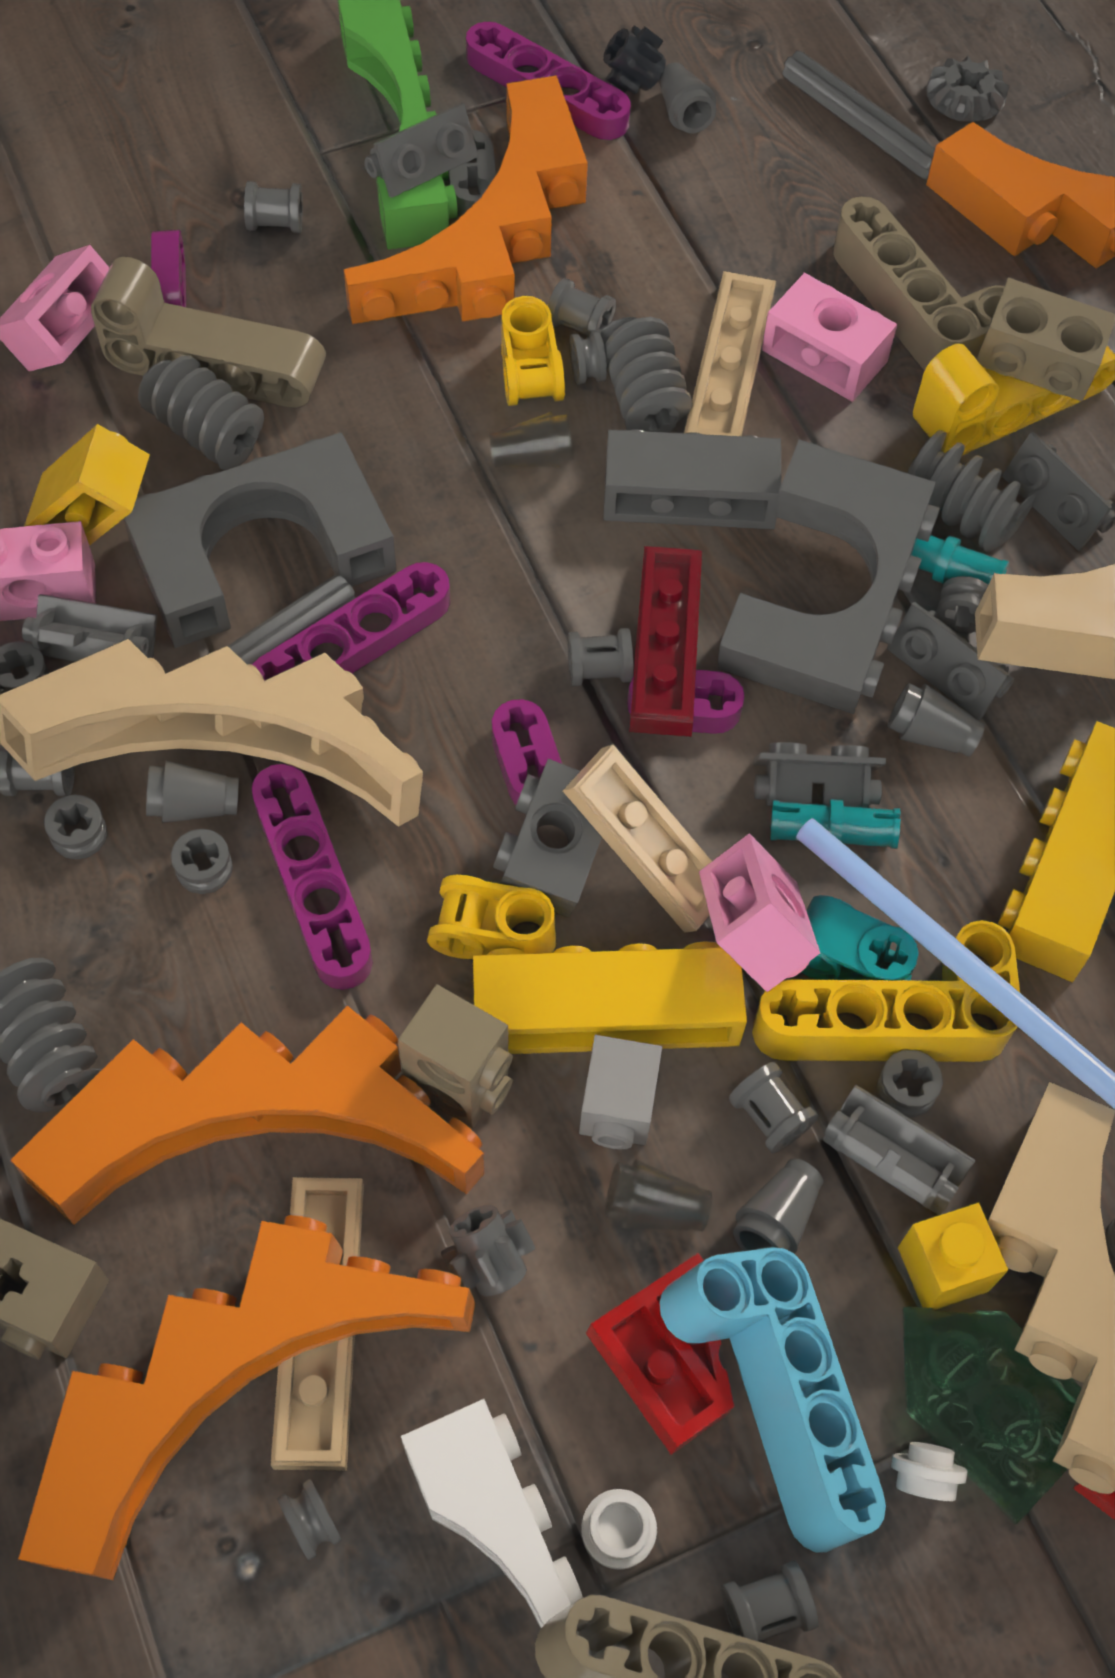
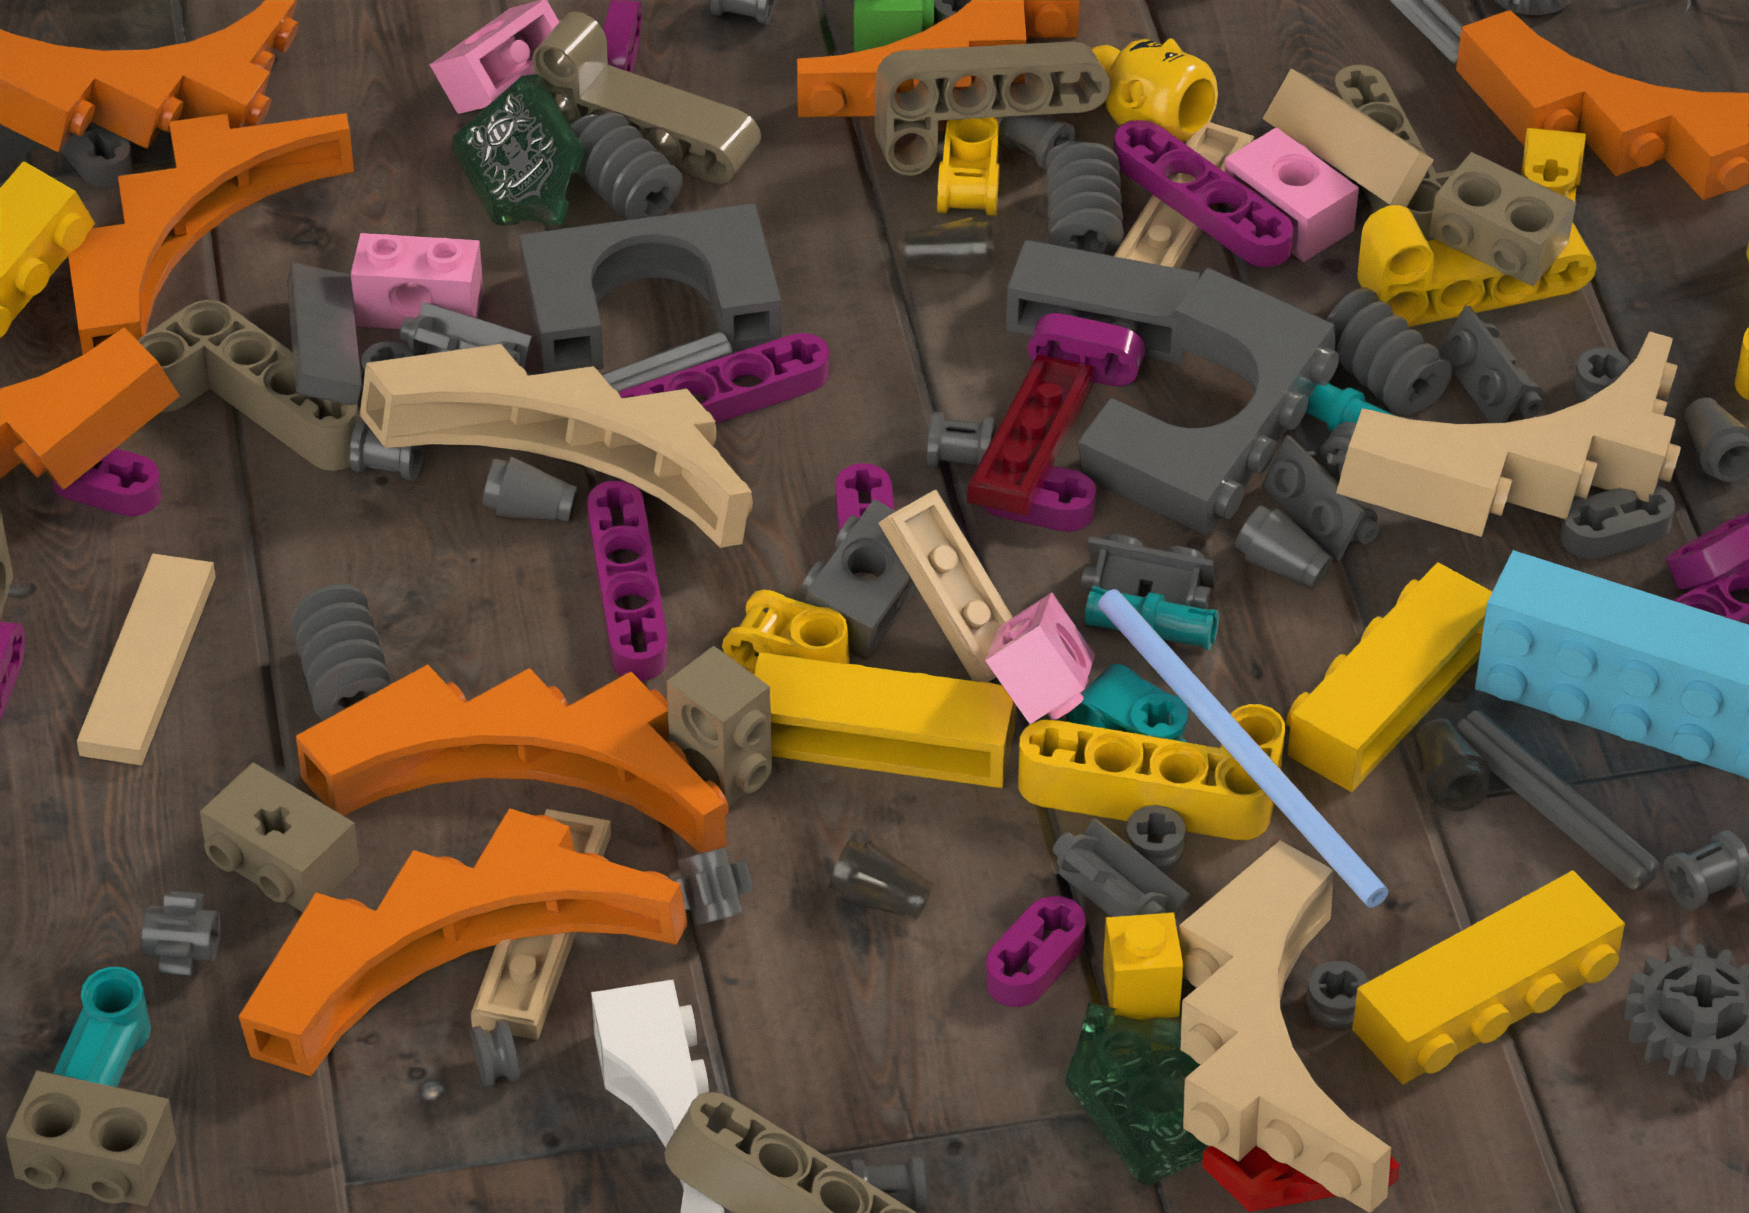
camera: 15 degrees right, 15 degrees down
(70, 811) = (416, 518): dark grey bush -> none
(90, 484) = (498, 208): yellow brick -> none
(100, 387) = (520, 155): none -> clear green tile
(215, 849) = (525, 567): dark grey bush -> none
(587, 357) = (1030, 178): dark grey bush -> none
(598, 256) = (1063, 81): none -> dark tan beam
(619, 1529) = (778, 1105): white plate -> none
(620, 1092) = (871, 790): light grey brick -> none
(670, 1381) = (854, 995): red wing -> none
(675, 248) = (1159, 86): none -> yellow piece
(689, 308) = (1252, 232): none -> magenta beam
(713, 530) = (1090, 344): none -> magenta beam
(773, 1107) = (1013, 829): dark grey bush -> none
(779, 1209) = (988, 910): dark grey cone -> none
(792, 1385) = (961, 1020): medium azure beam -> none
(847, 1254) = (1025, 943): none -> magenta beam
(874, 276) = (1348, 139): none -> tan tile
(928, 1472) = (1067, 1121): white plate -> none
(1051, 264) = (1554, 159): none -> yellow piece

